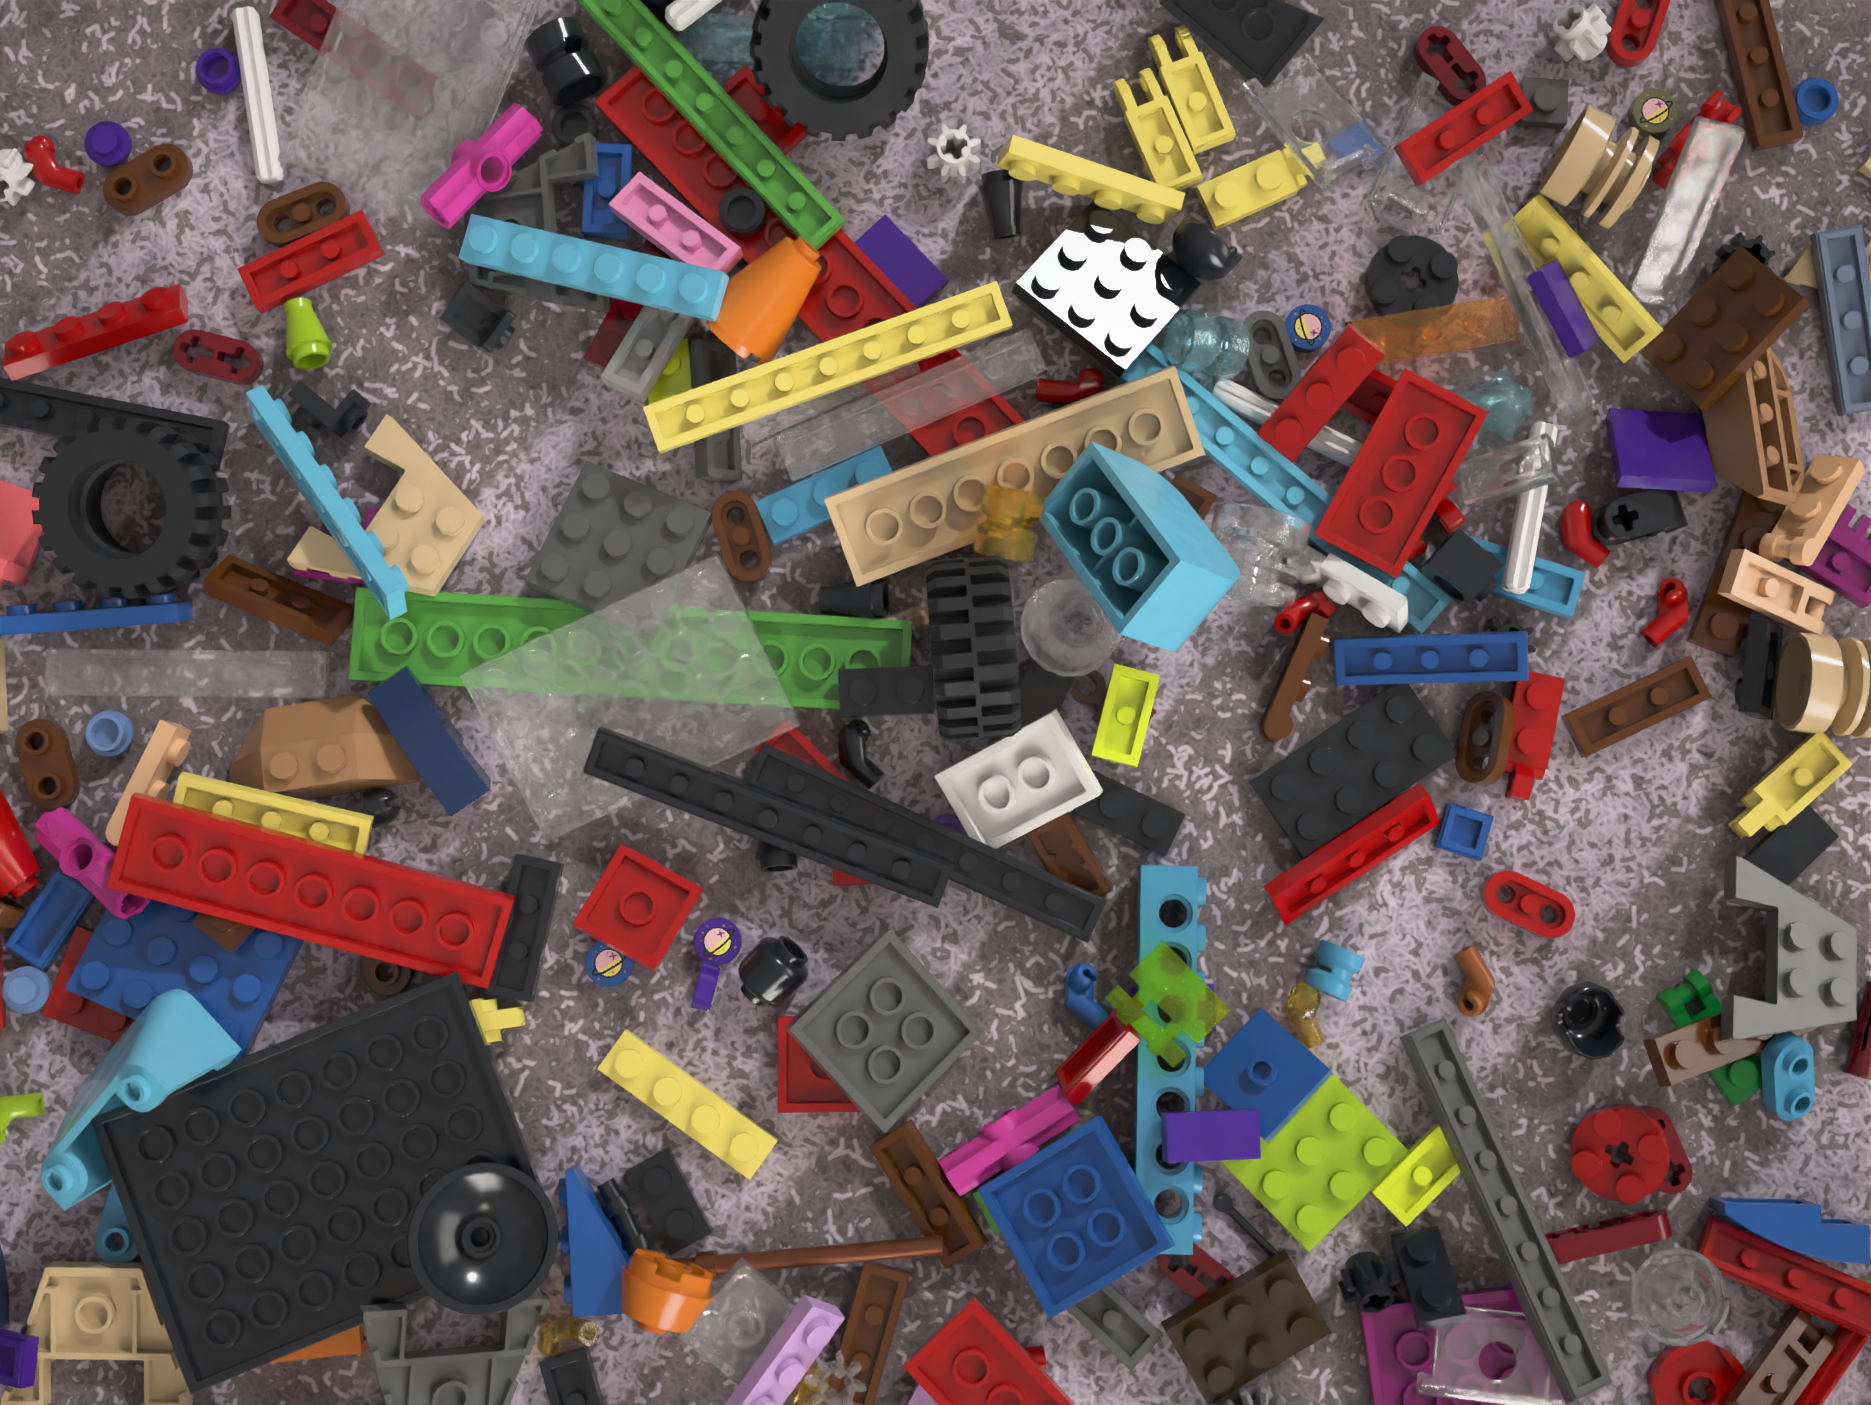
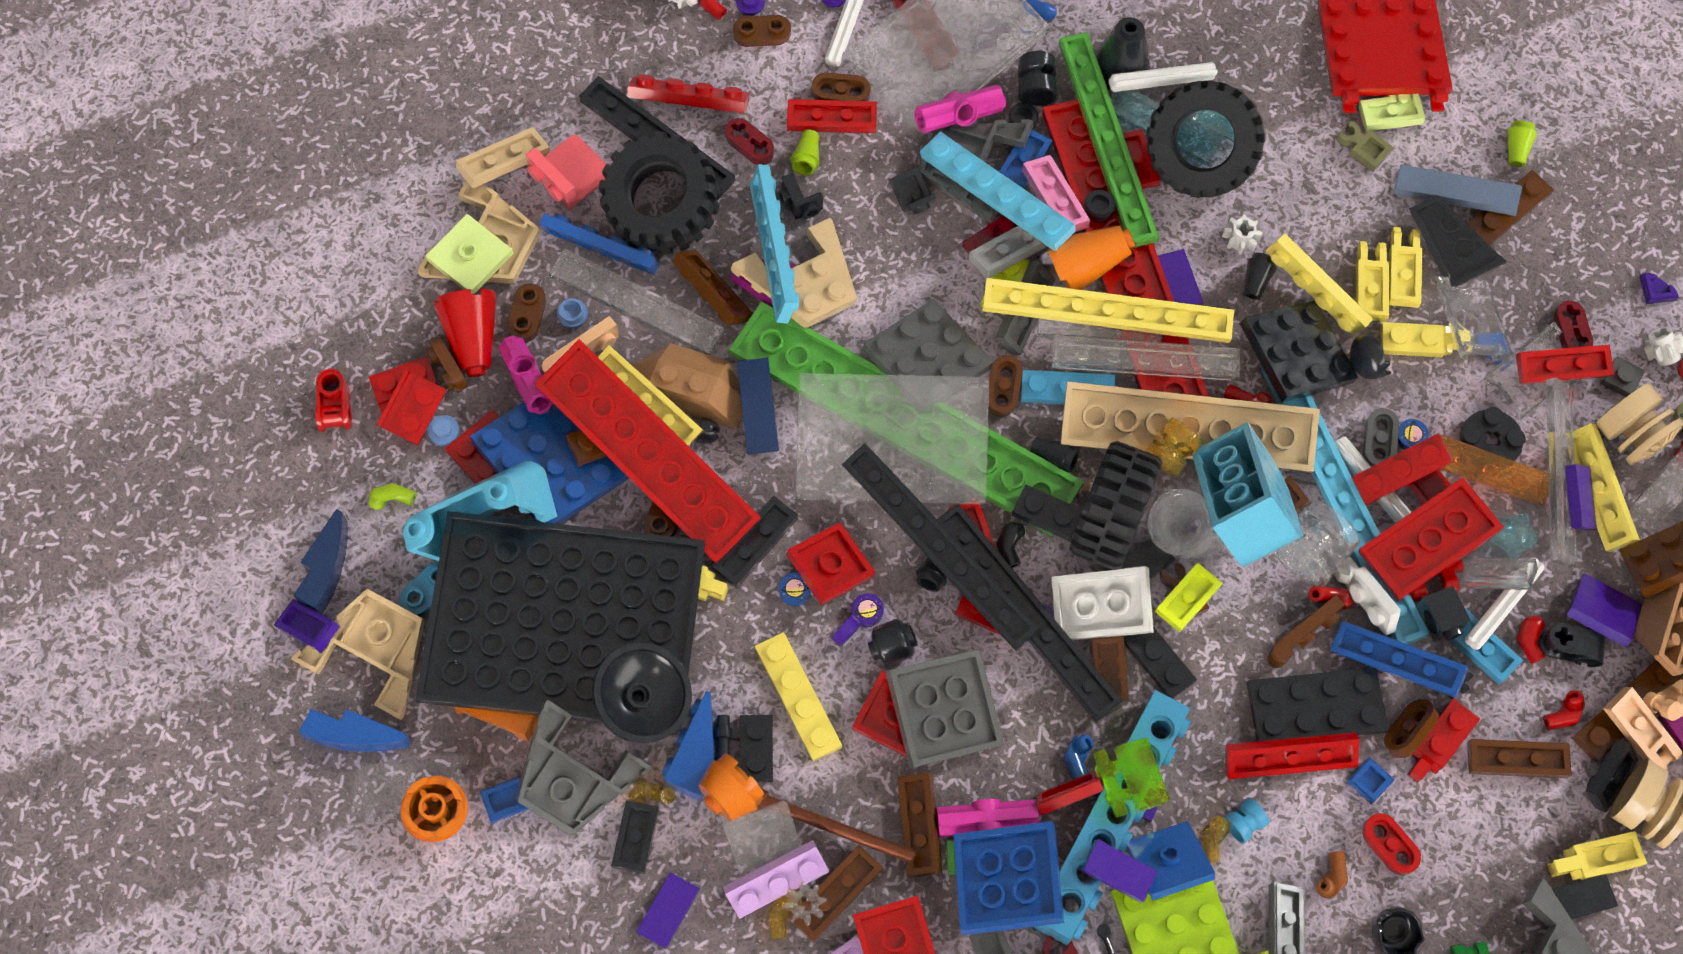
camera: 25 degrees right, 15 degrees down
(50, 920) = (479, 399): blue tile -> none
(1206, 343) = (1347, 412): clear light blue wheel -> none

